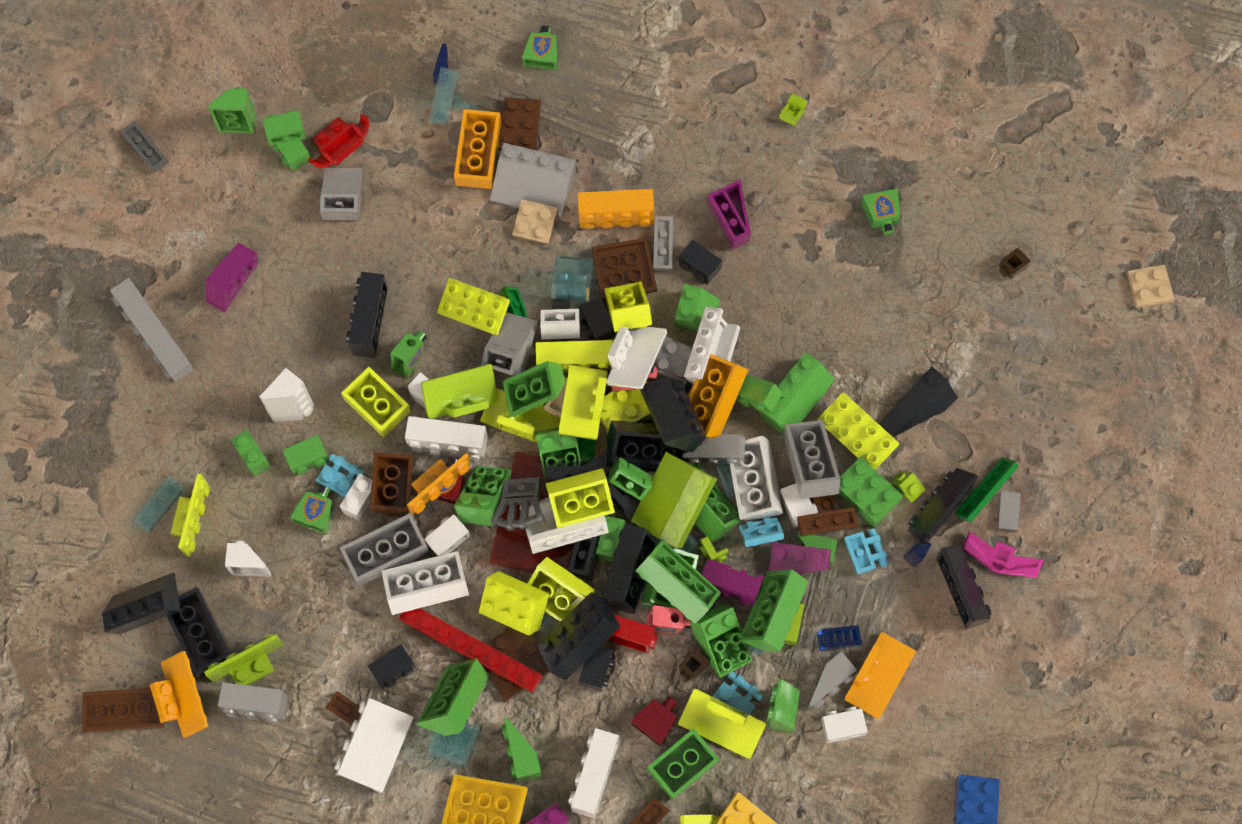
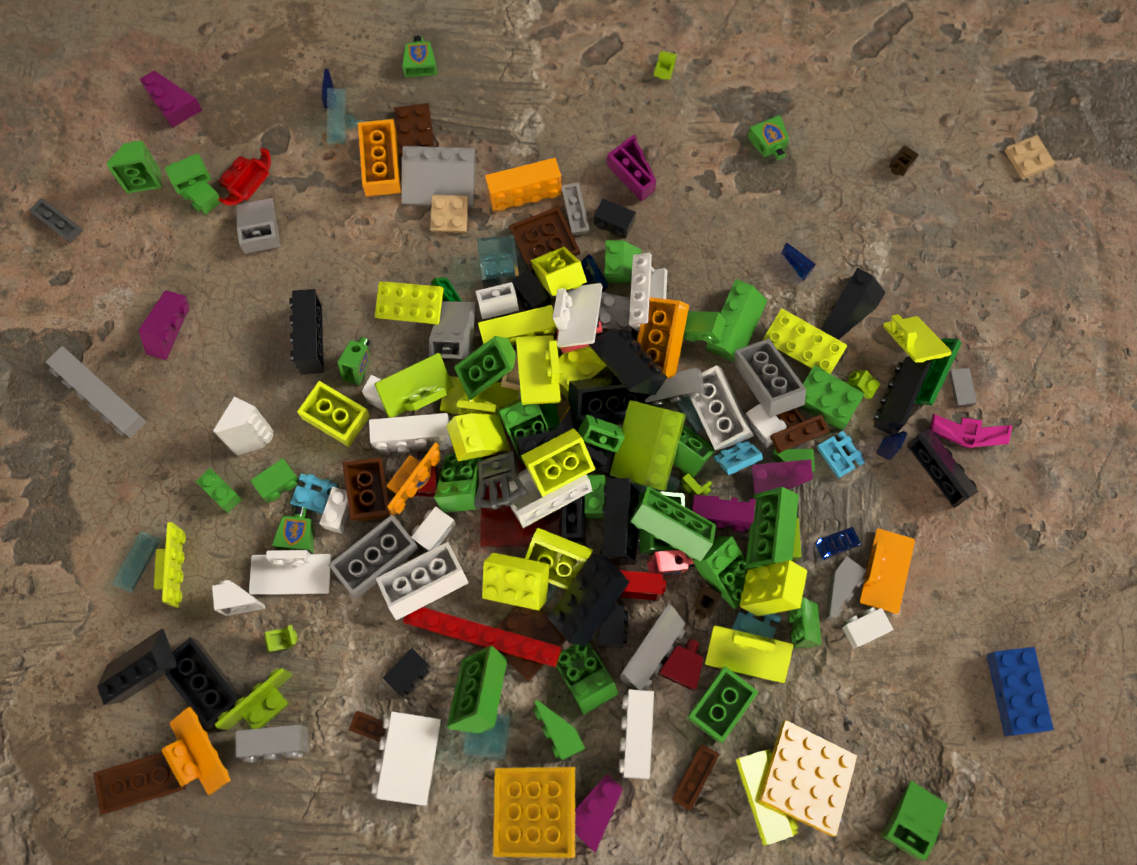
camera: 15 degrees left, 0 degrees up
(279, 608) = (280, 639): none -> lime bracket
(281, 42) = (170, 99): none -> magenta wedge
(301, 547) = (290, 573): none -> white bracket
(509, 455) = (477, 436): none -> neon yellow slope
(560, 709) = (586, 677): none -> bright green slope
(629, 697) = (653, 649): none -> light grey slope
(663, 316) = (595, 275): none -> slope
(757, 665) = (773, 588): none -> neon yellow brick
(878, 349) = (798, 261): none -> clear blue slope
(970, 452) = (916, 338): none -> neon yellow bracket

